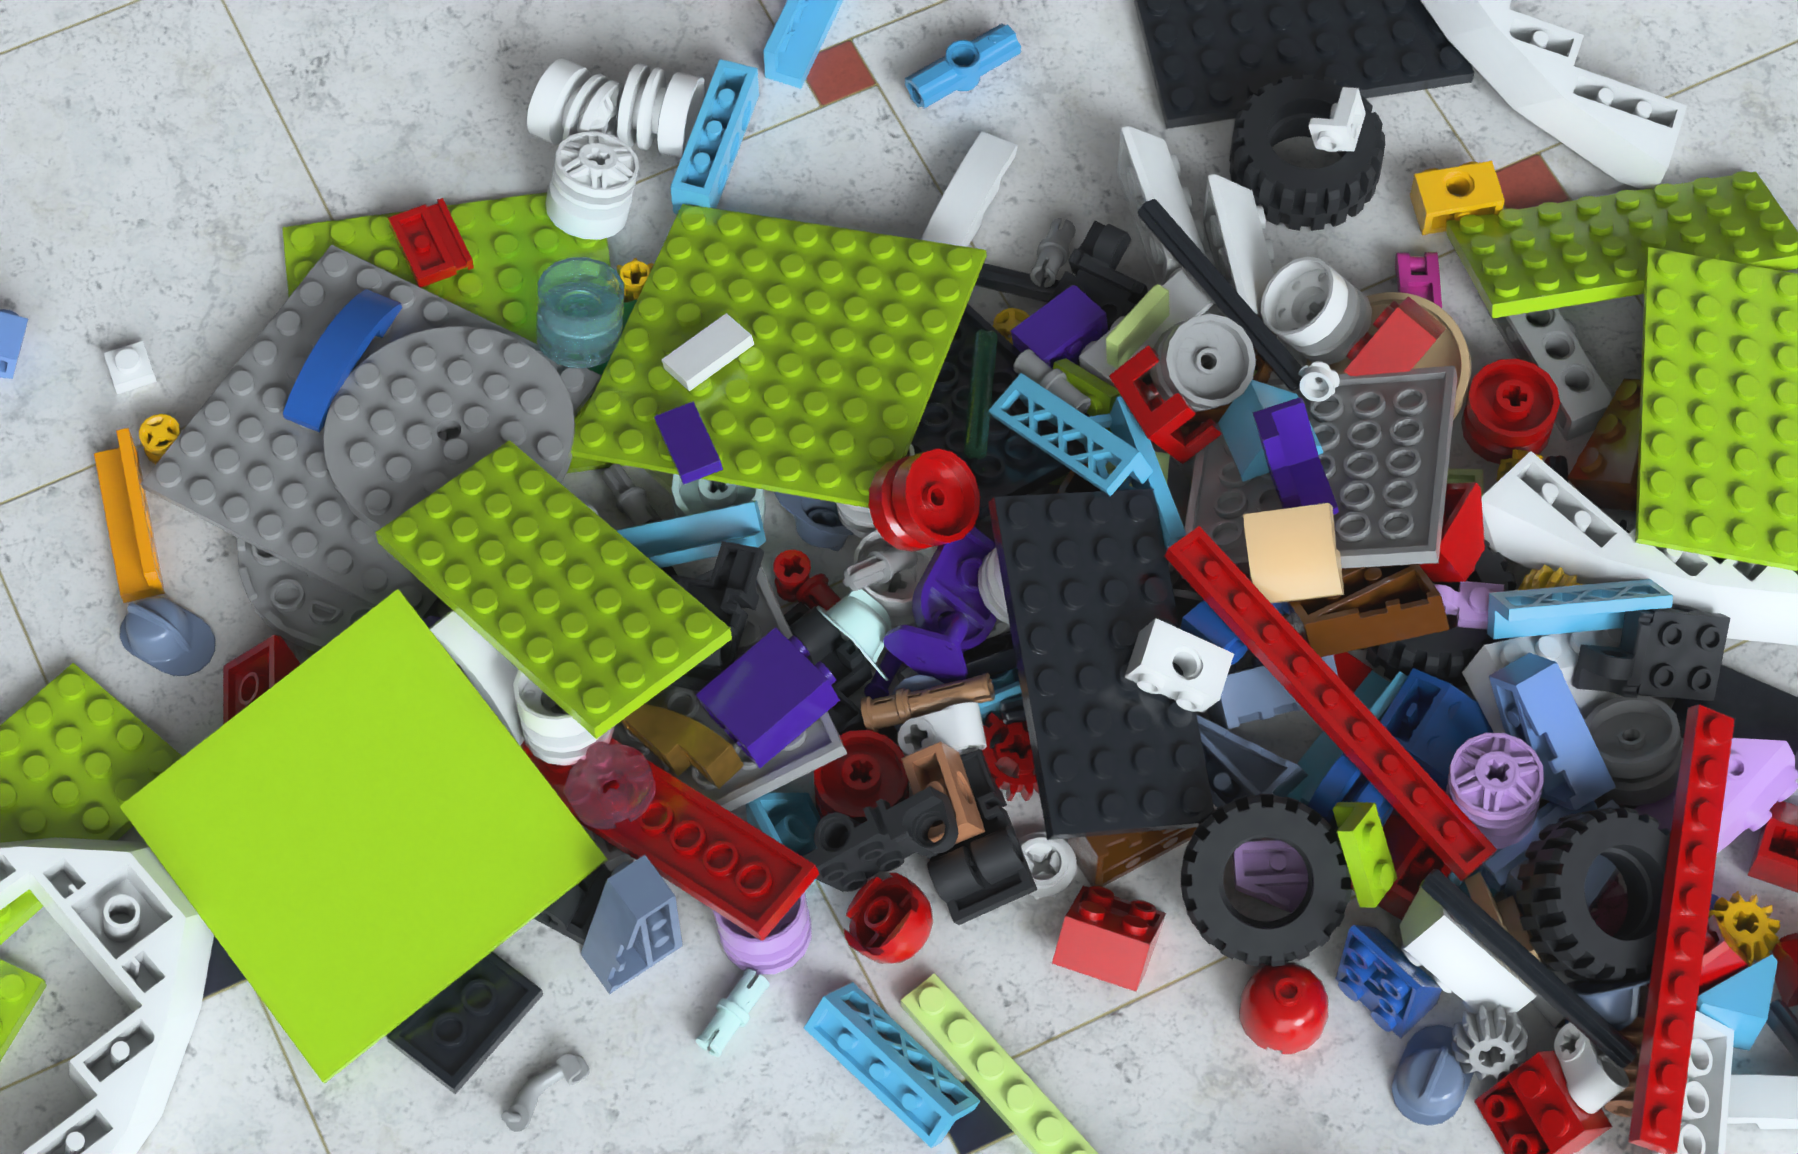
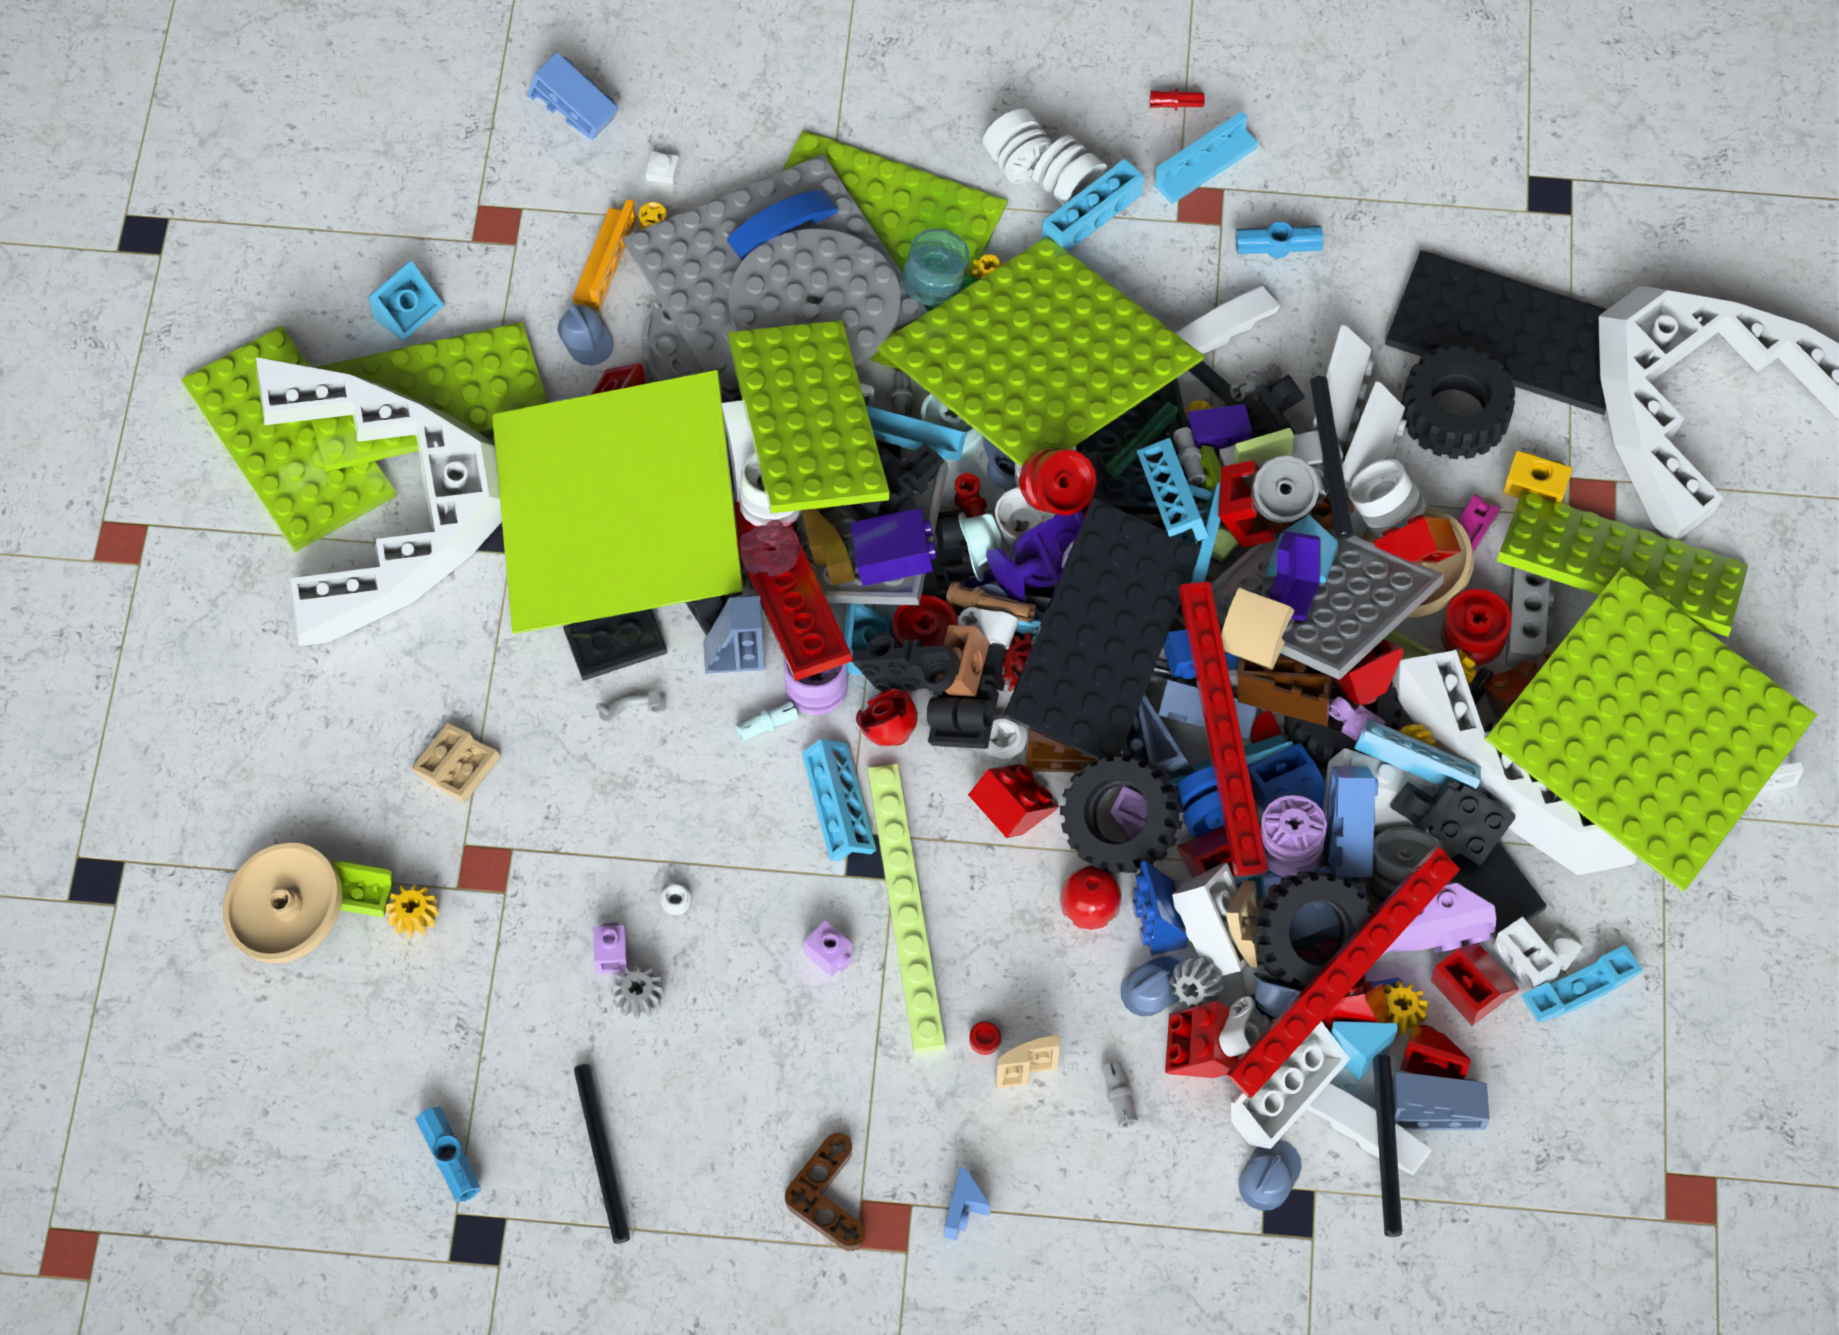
camera: 30 degrees right, 0 degrees up
(430, 243) = (880, 182): red plate -> none
(592, 185) = (997, 196): white wheel -> none
(688, 443) = (944, 376): dark purple tile -> none
(707, 352) = (994, 329): white tile -> none
(878, 567) = (1011, 508): light grey axle -> none
(1202, 665) = (1161, 662): white brick -> none
(1314, 389) = (1354, 540): white plate -> none
(1344, 125) = (1483, 393): white bracket -> none
(1365, 851) = (1187, 828): lime bracket -> none
(1529, 968) = (1237, 944): black axle -> none

